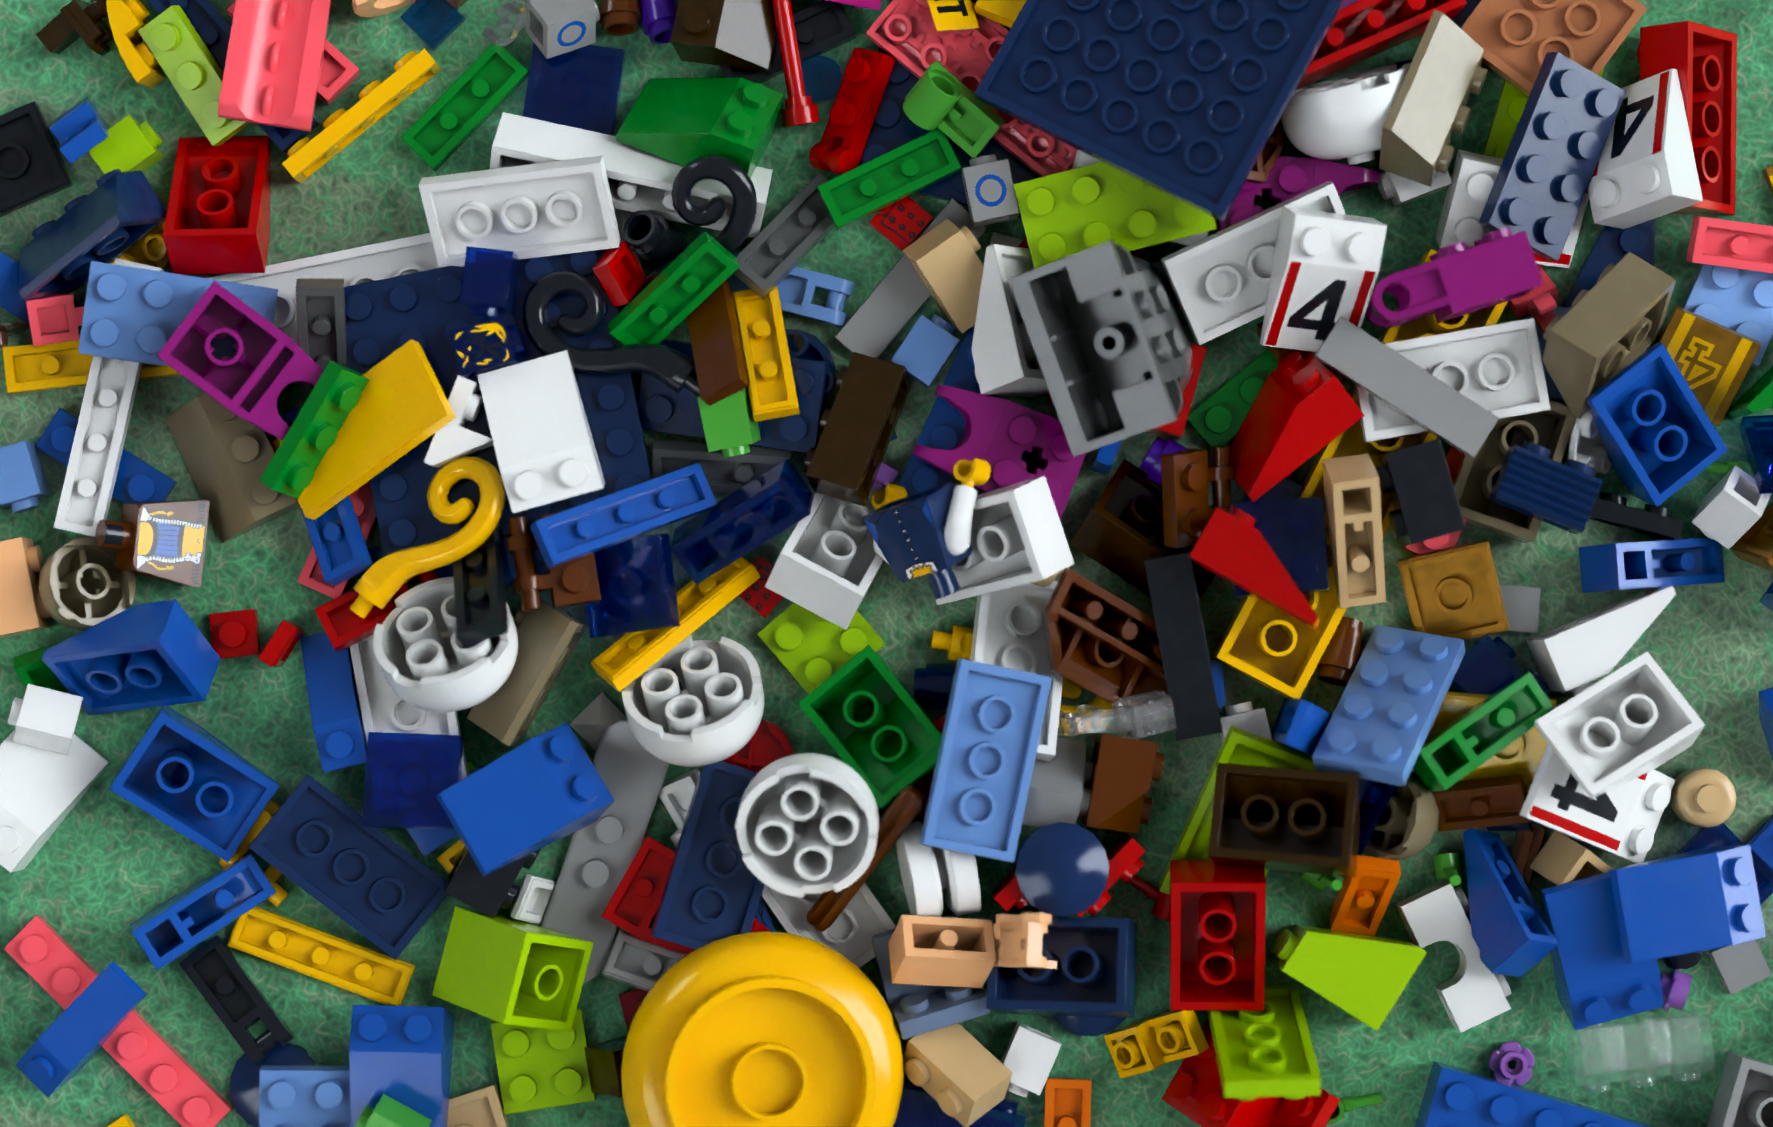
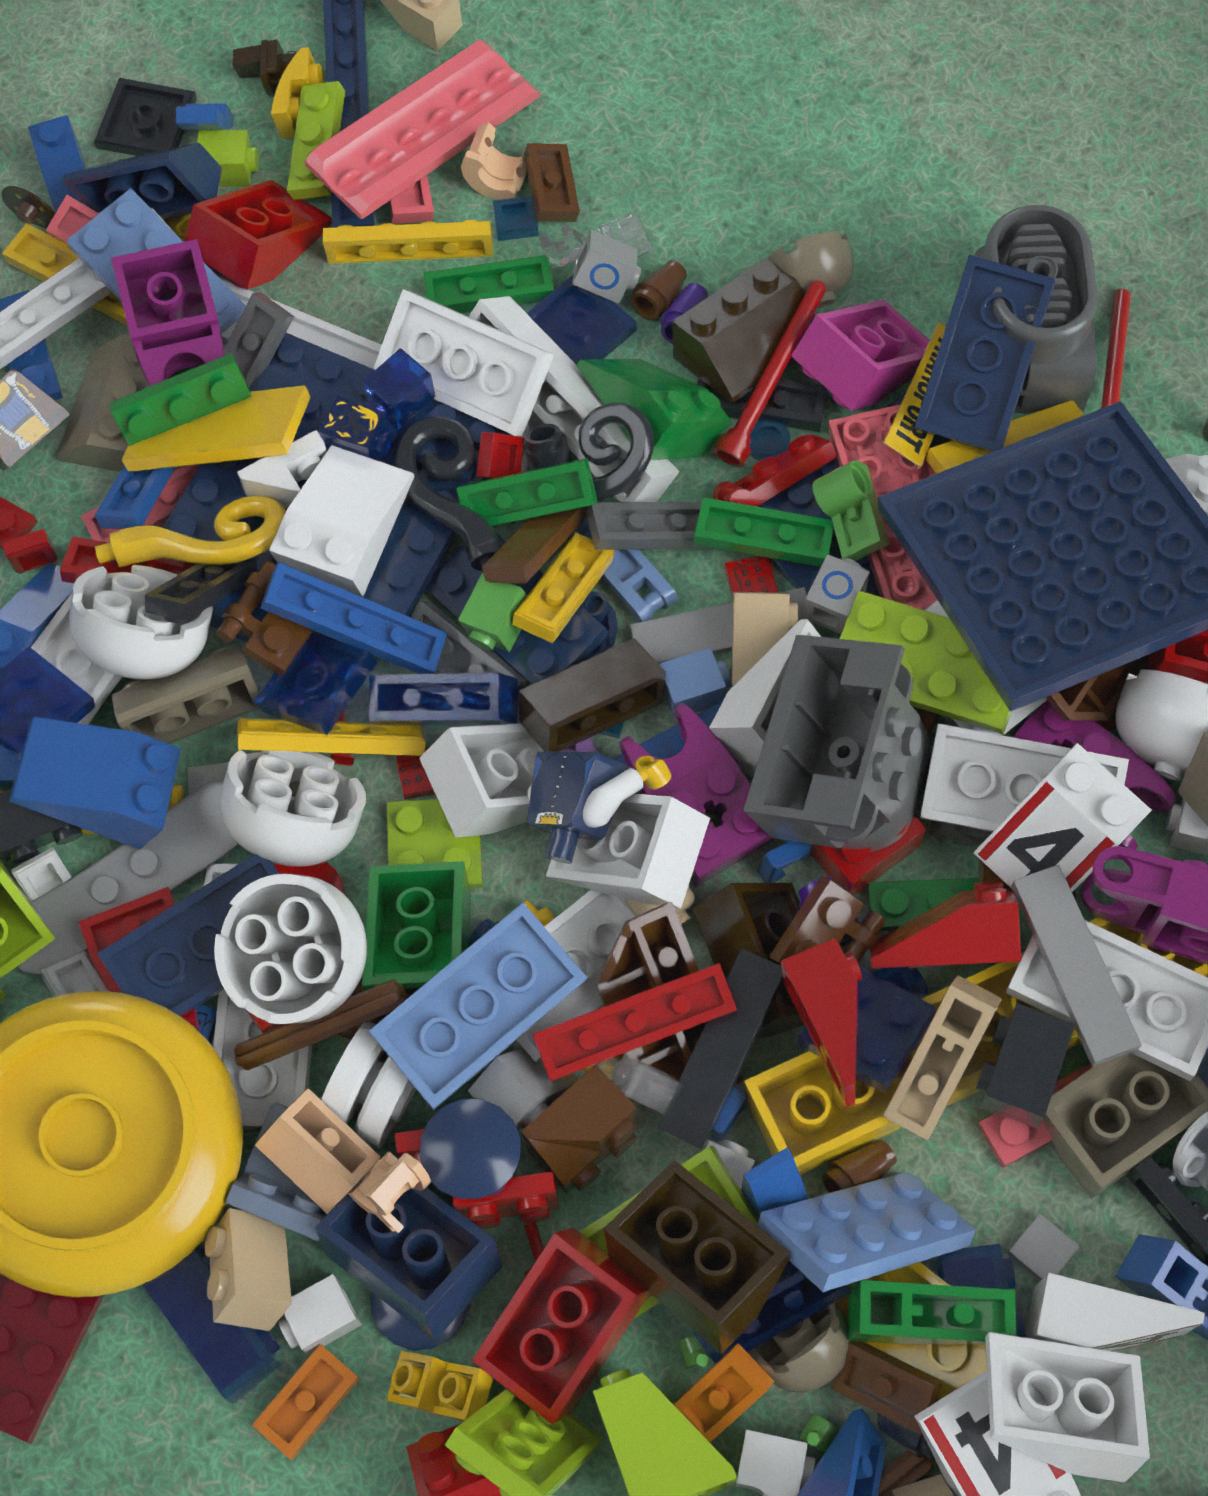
camera: 40 degrees right, 20 degrees down
(1108, 680) = (634, 1022): none -> red plate
(1454, 591) = (999, 1190): pearl gold tile -> none
(1546, 488) = (1143, 1142): dark blue brick -> none

